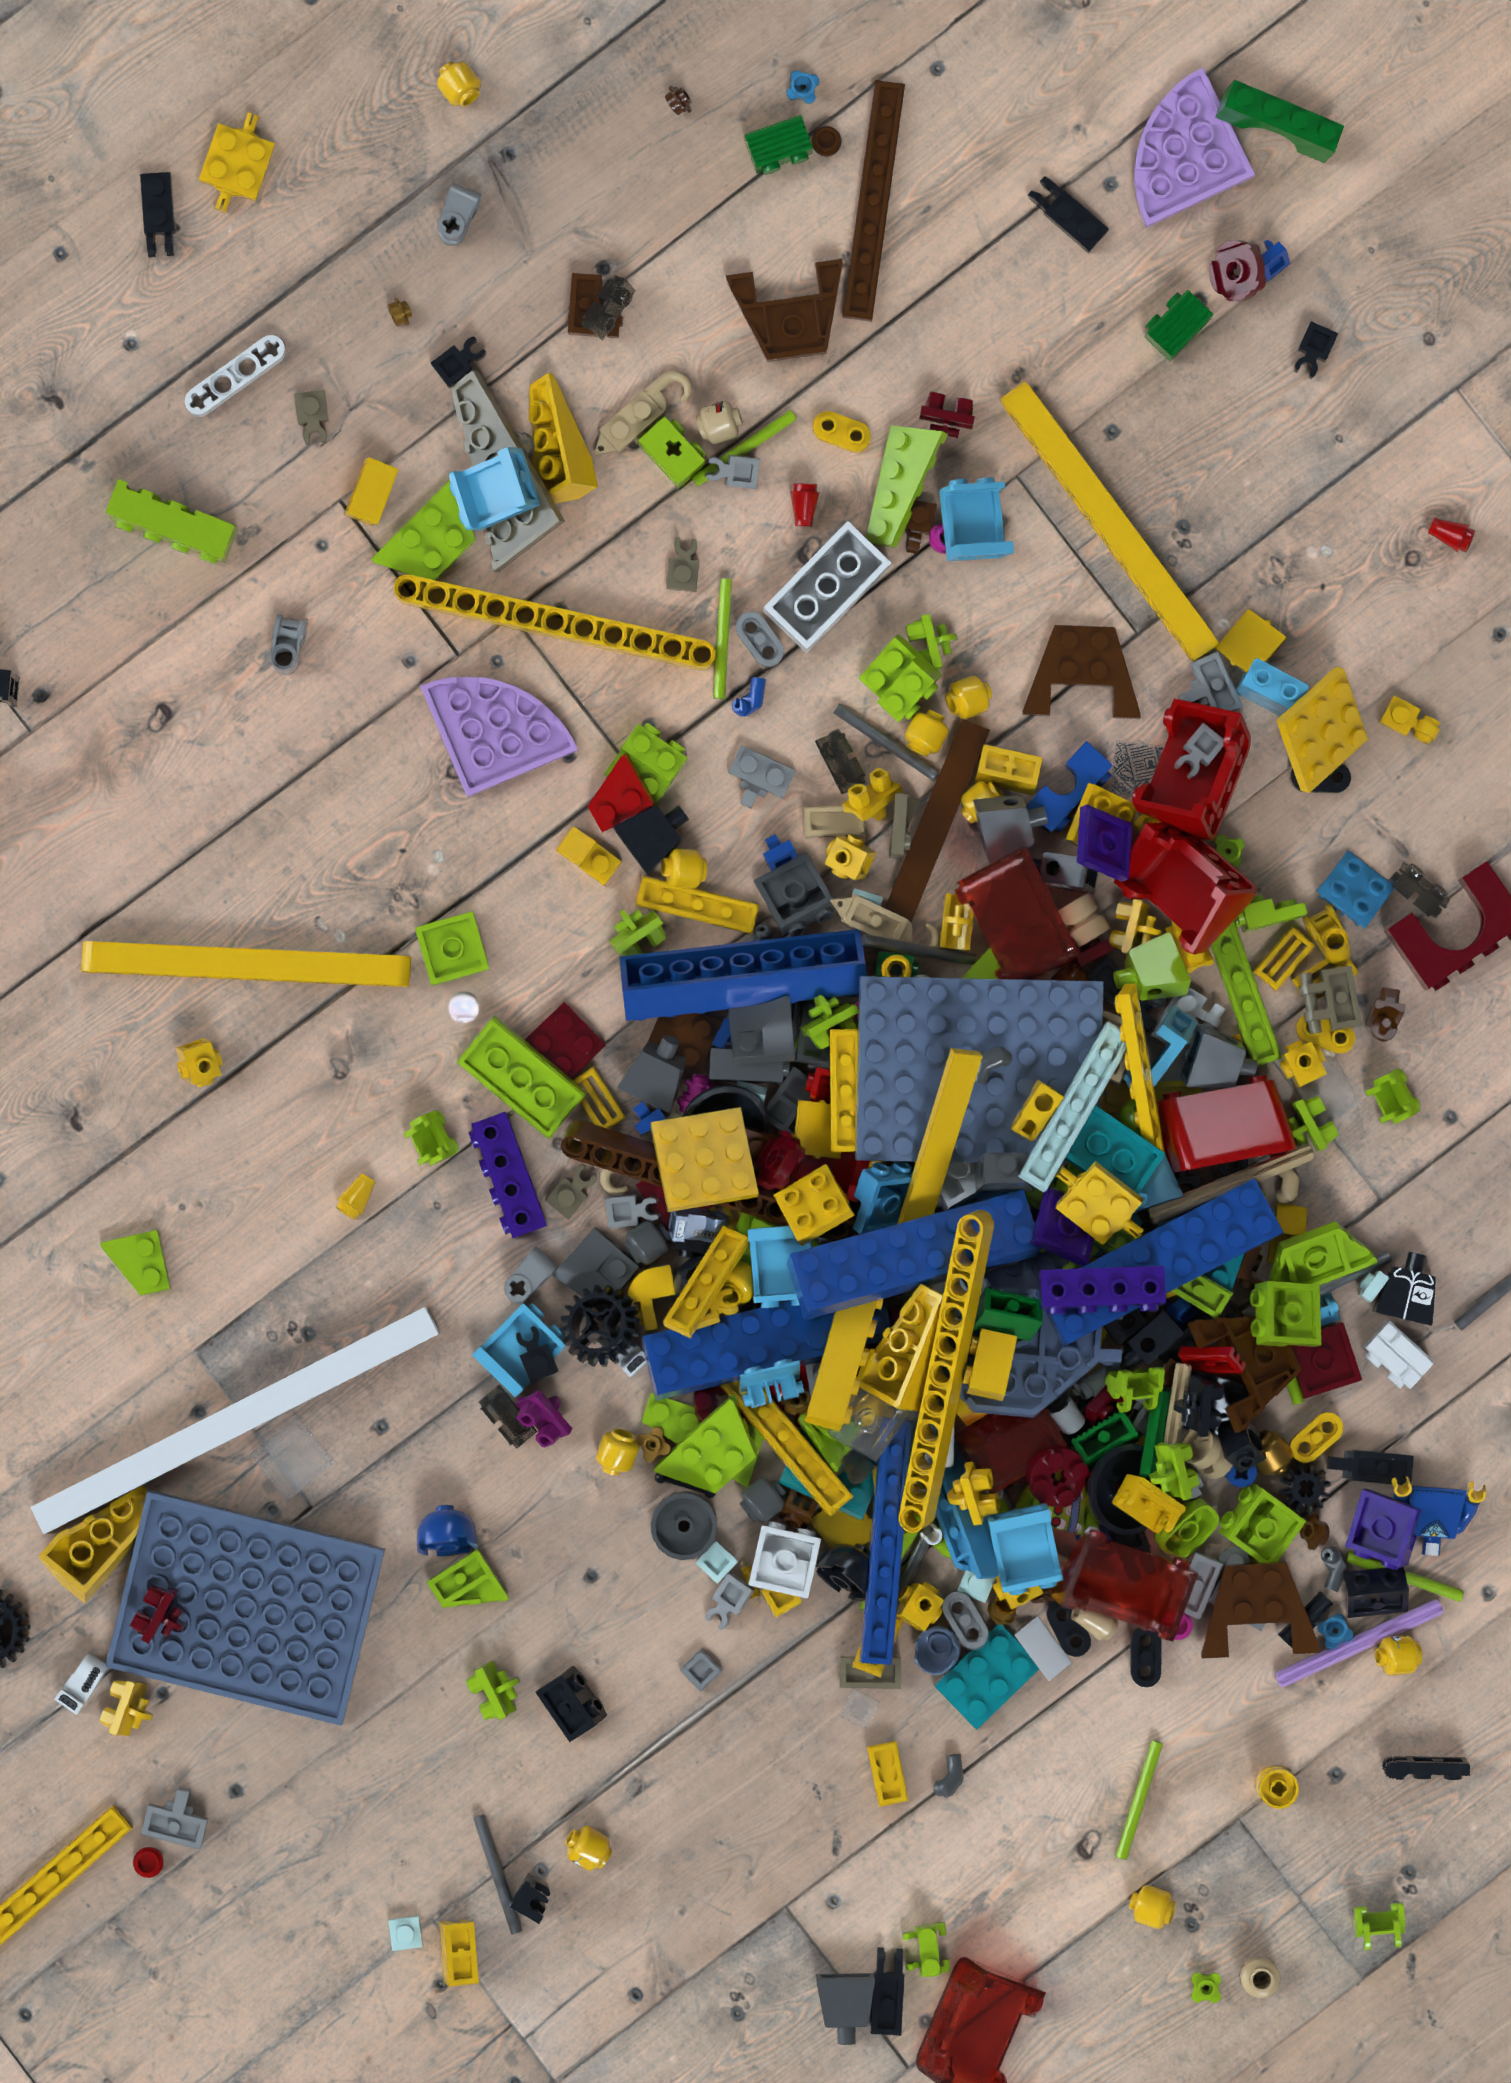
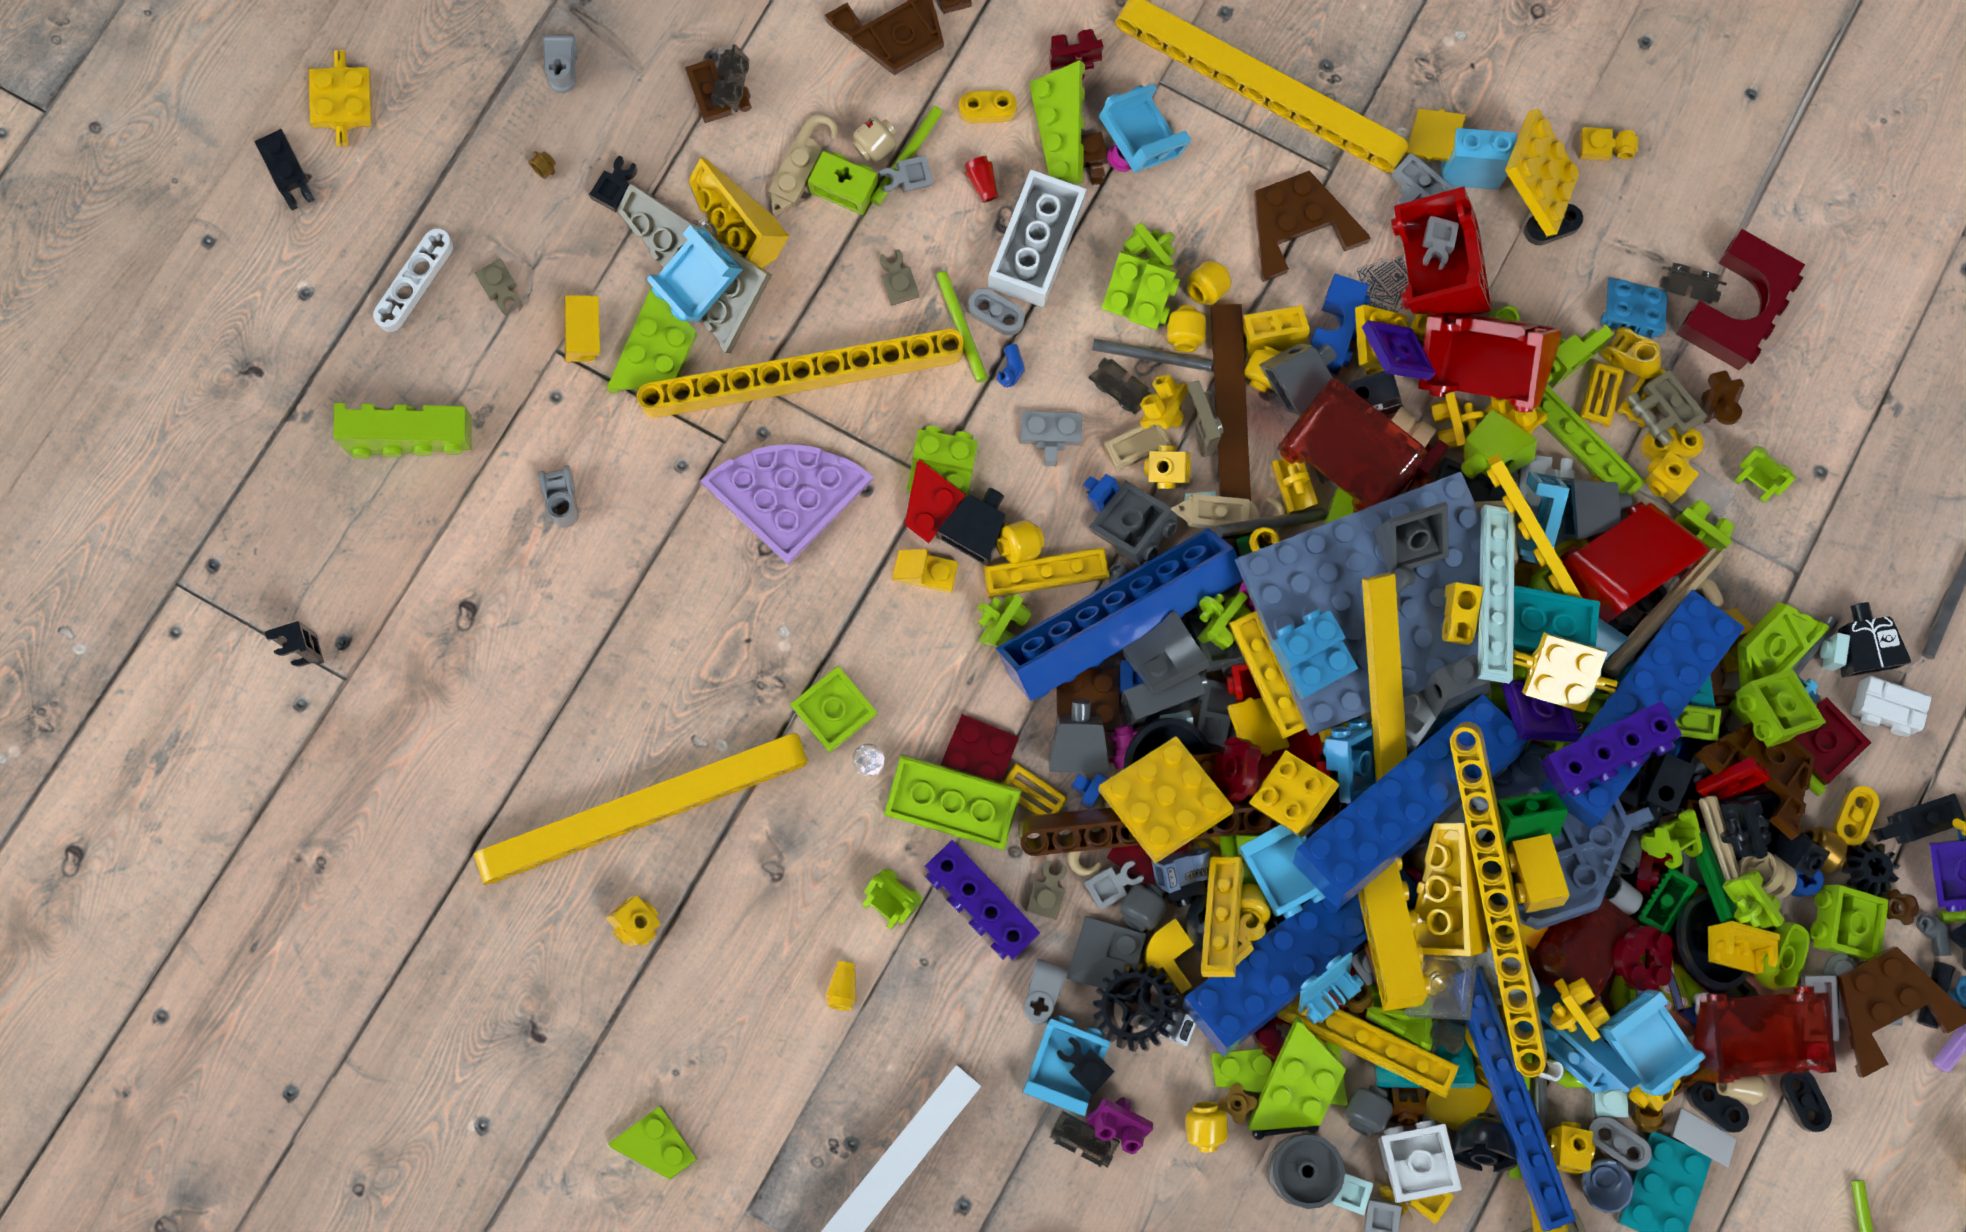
camera: 20 degrees left, 10 degrees down
(887, 1091) = (1313, 653): none -> dark azure plate
(1025, 1028) = (1414, 538): none -> dark grey slope

